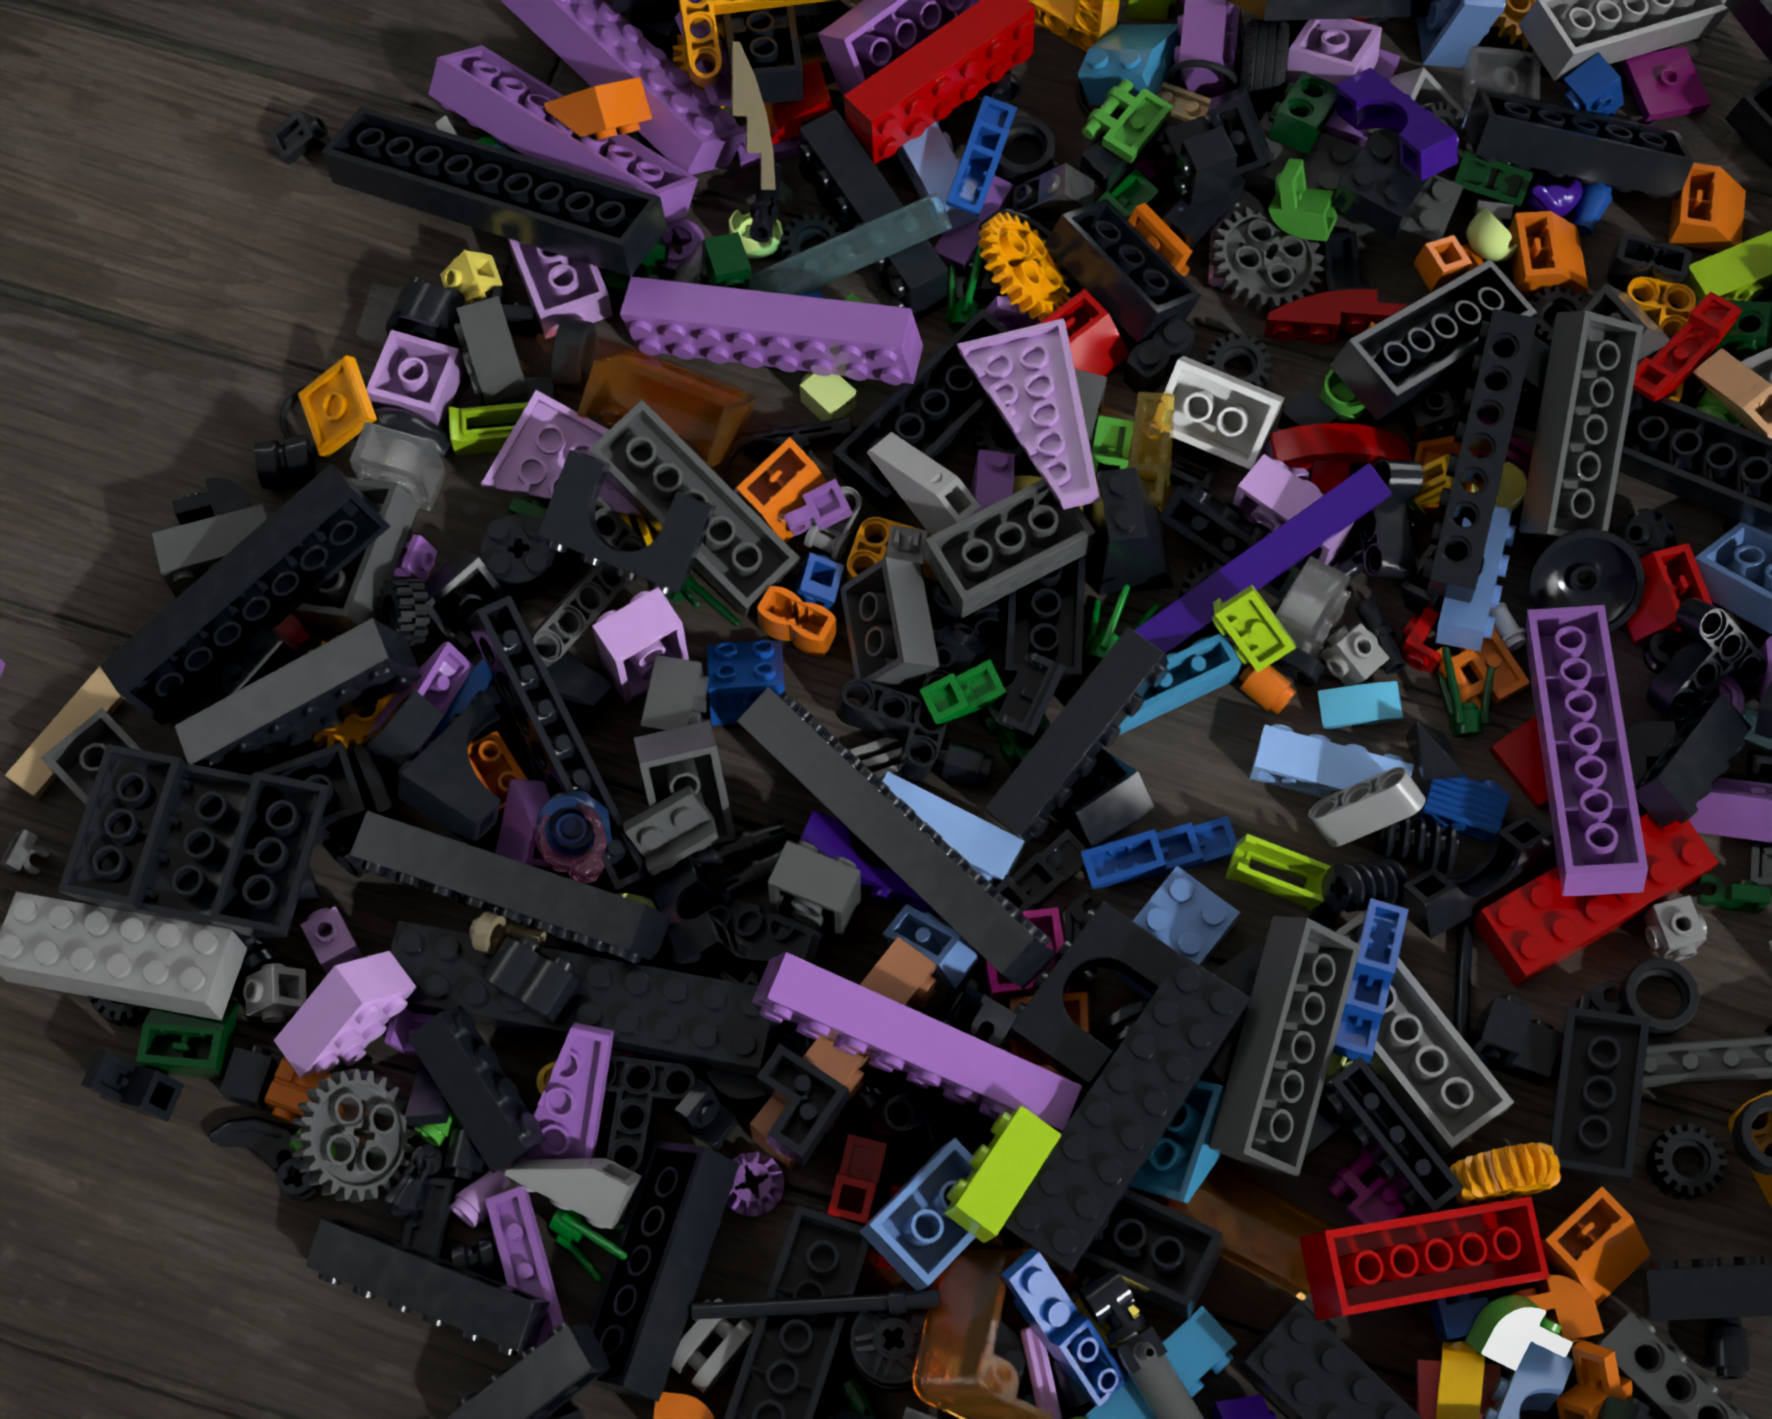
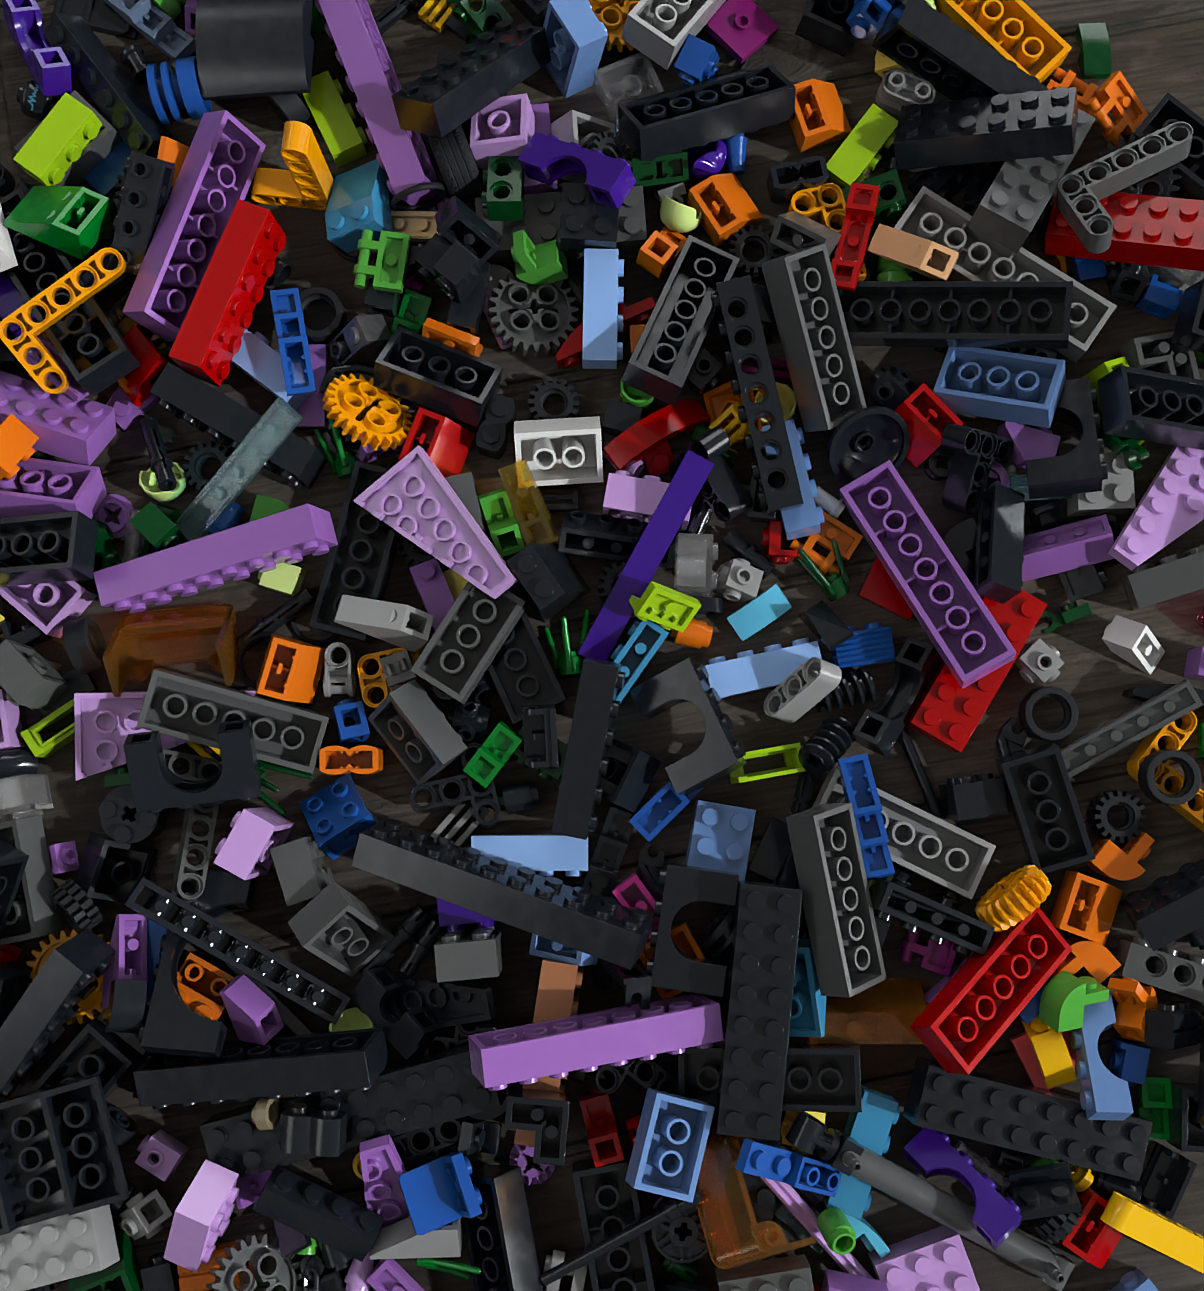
camera: 30 degrees left, 15 degrees up
(574, 835) = (285, 1014): piece -> none
(633, 1136) = (440, 1192): none -> blue bracket
(672, 830) = (350, 966): dark grey bracket -> none
(747, 102) = (103, 397): dark tan slope -> none
(824, 506) = (325, 670): medium lavender plate -> none
(1001, 1173) = (701, 1103): lime brick -> none
(1231, 816) = (719, 750): none -> black arch
(1347, 285) = (600, 309): none -> light blue brick
(1658, 1214) = (1120, 863): none -> orange brick

